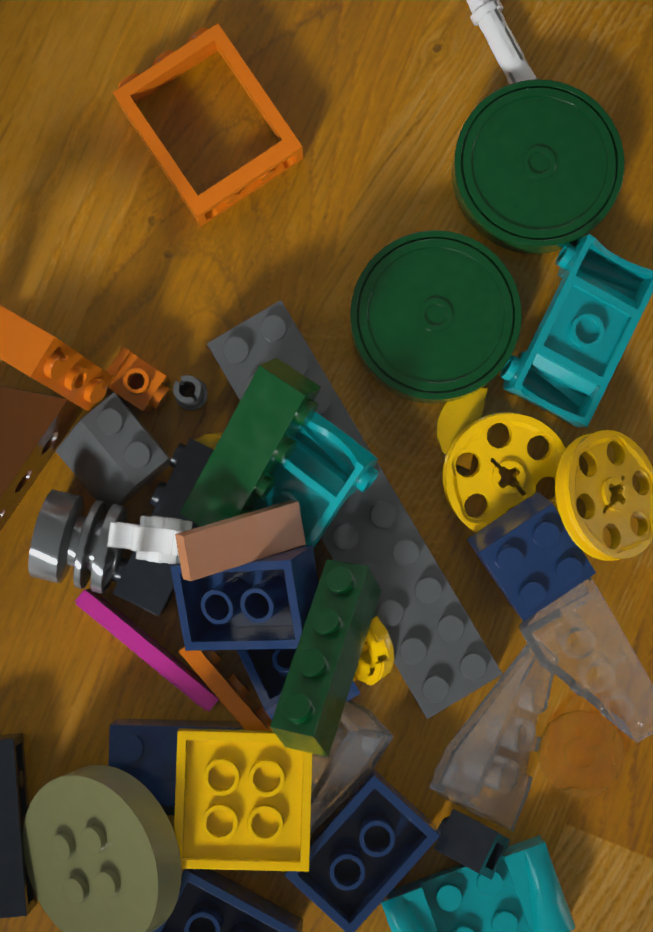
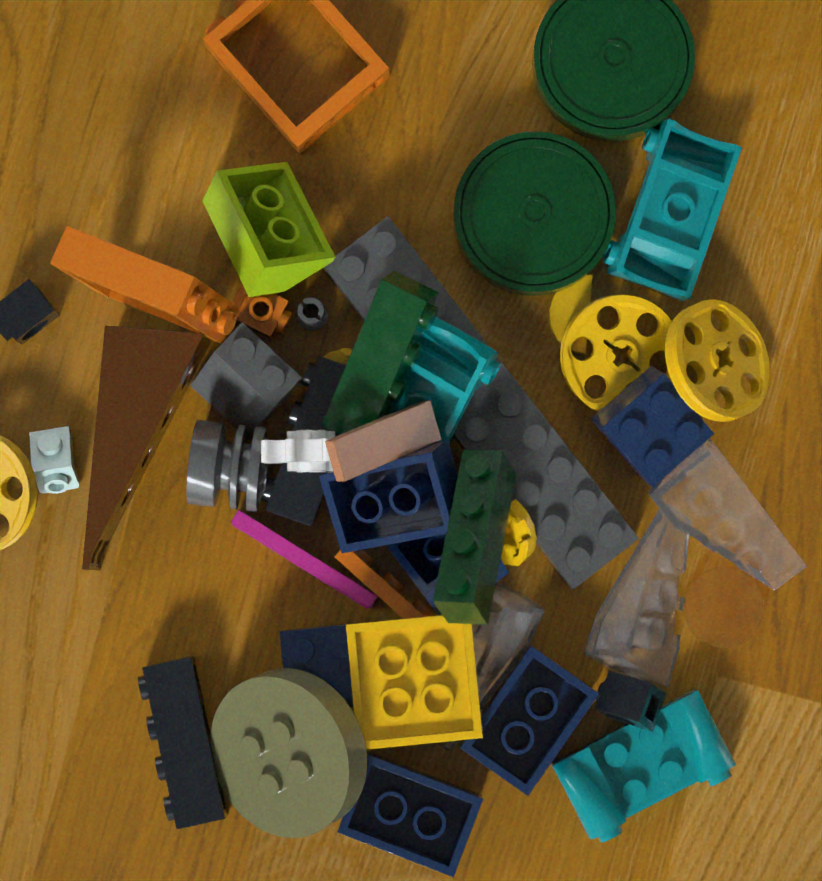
camera: 10 degrees left, 0 degrees up
(153, 296) = (266, 227): none -> lime slope

